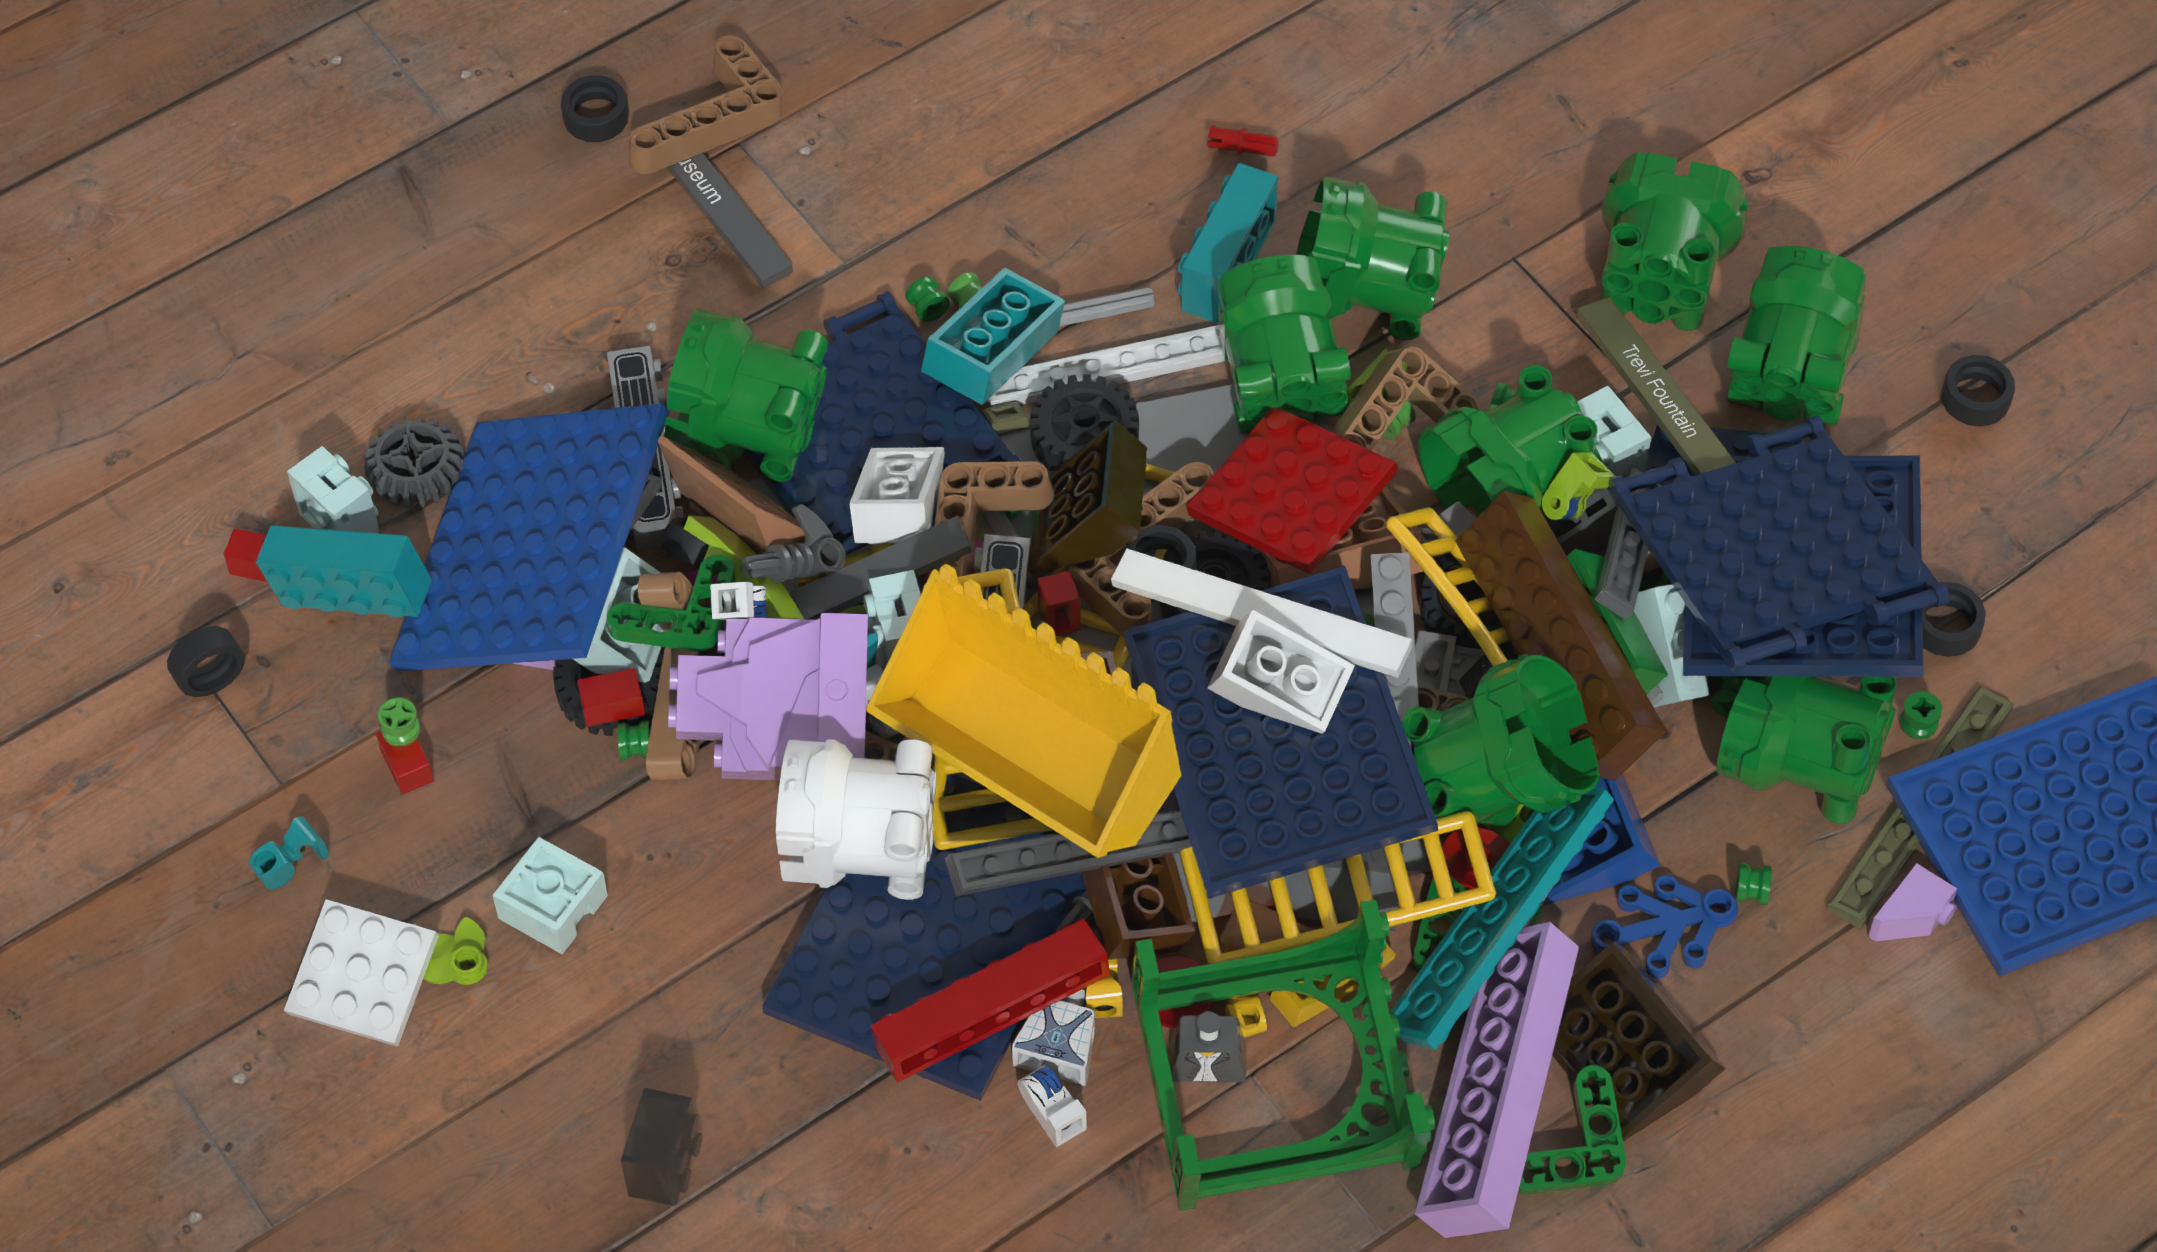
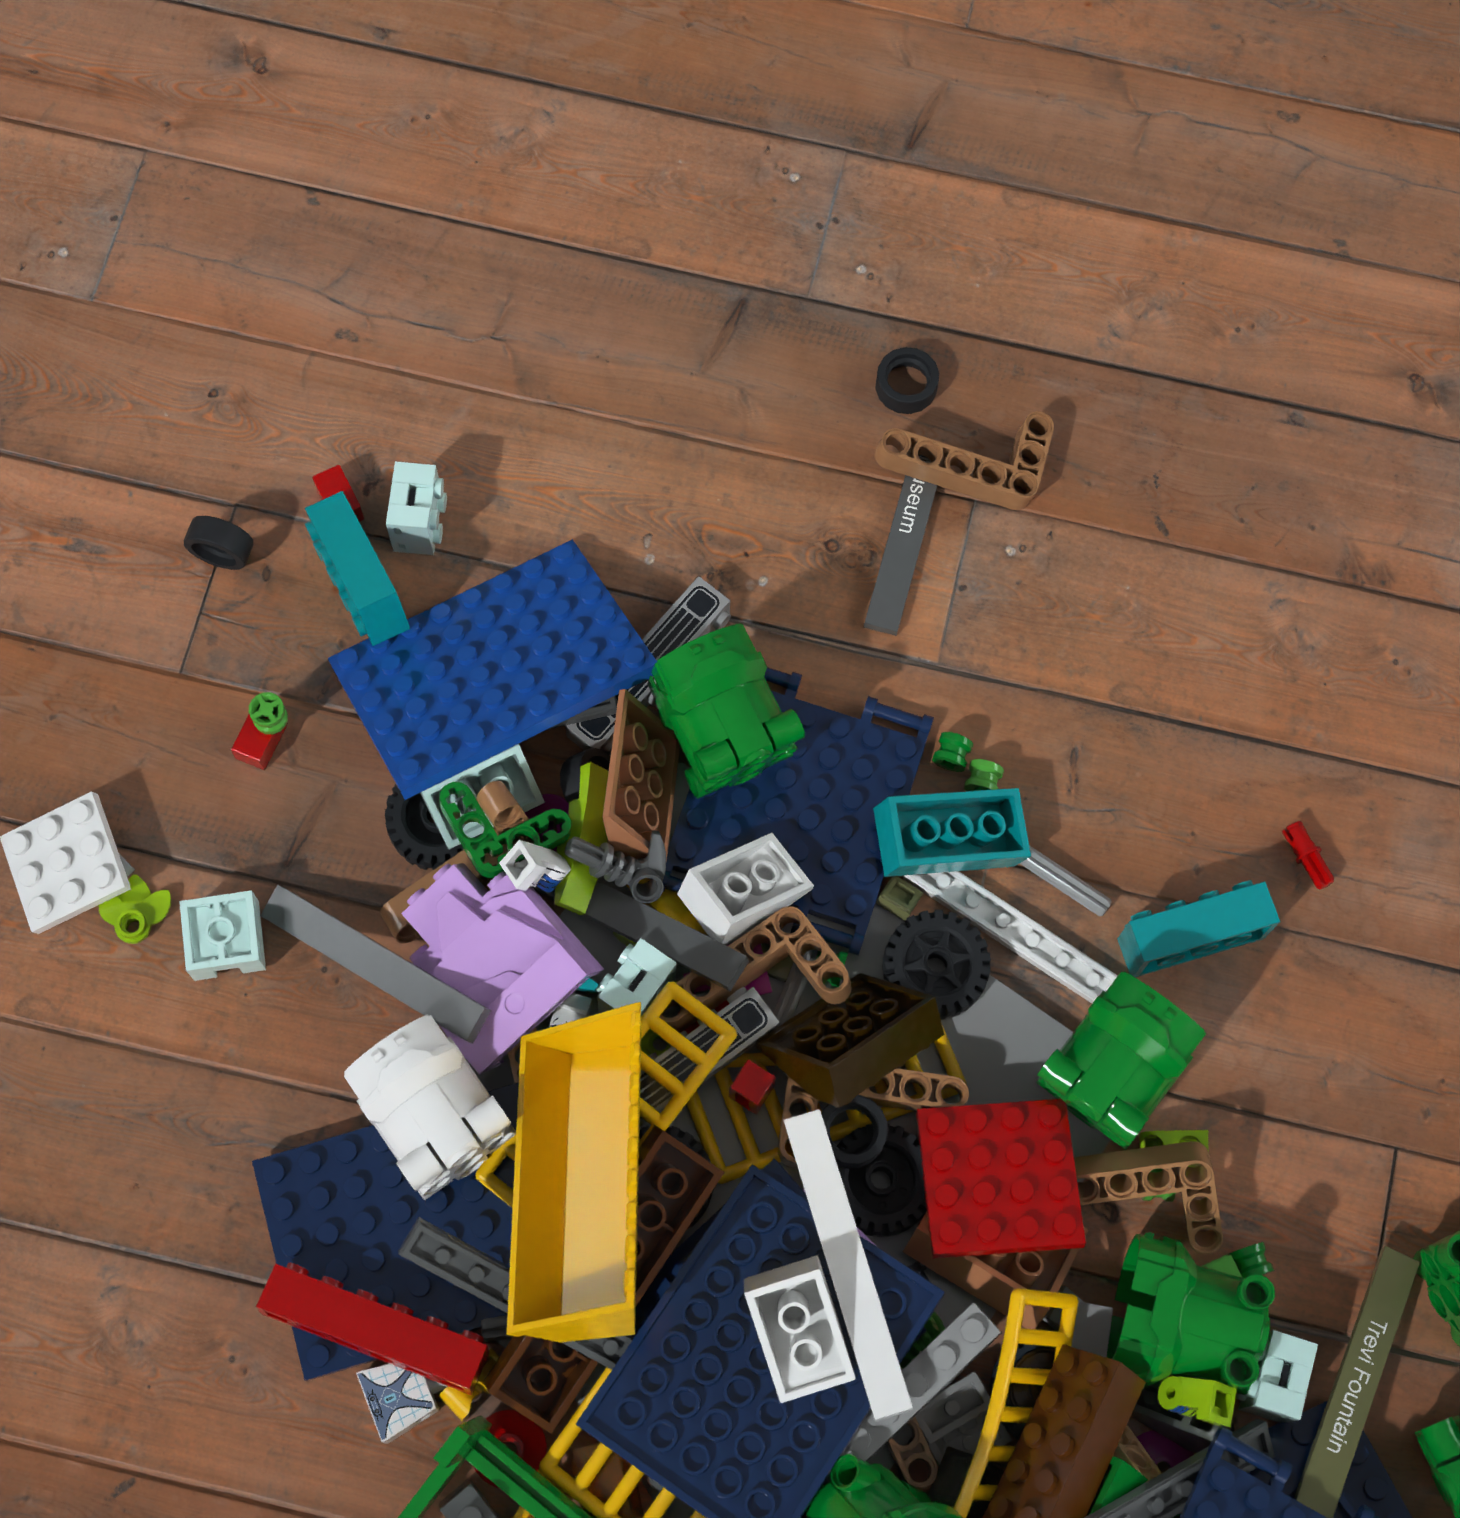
camera: 45 degrees right, 15 degrees up
(275, 862) = (106, 727): teal leg -> none
(391, 463) = (484, 511): dark grey gear -> none
(611, 697) = (407, 837): red piece -> none
(633, 739) = (399, 875): green wheel -> none
(661, 1147) = (78, 1192): clear smoke brick -> none
(689, 785) = (376, 964): none -> tile
(1052, 1105) = (343, 1436): white leg -> none
(1377, 252) = (1276, 1054): green piece -> none

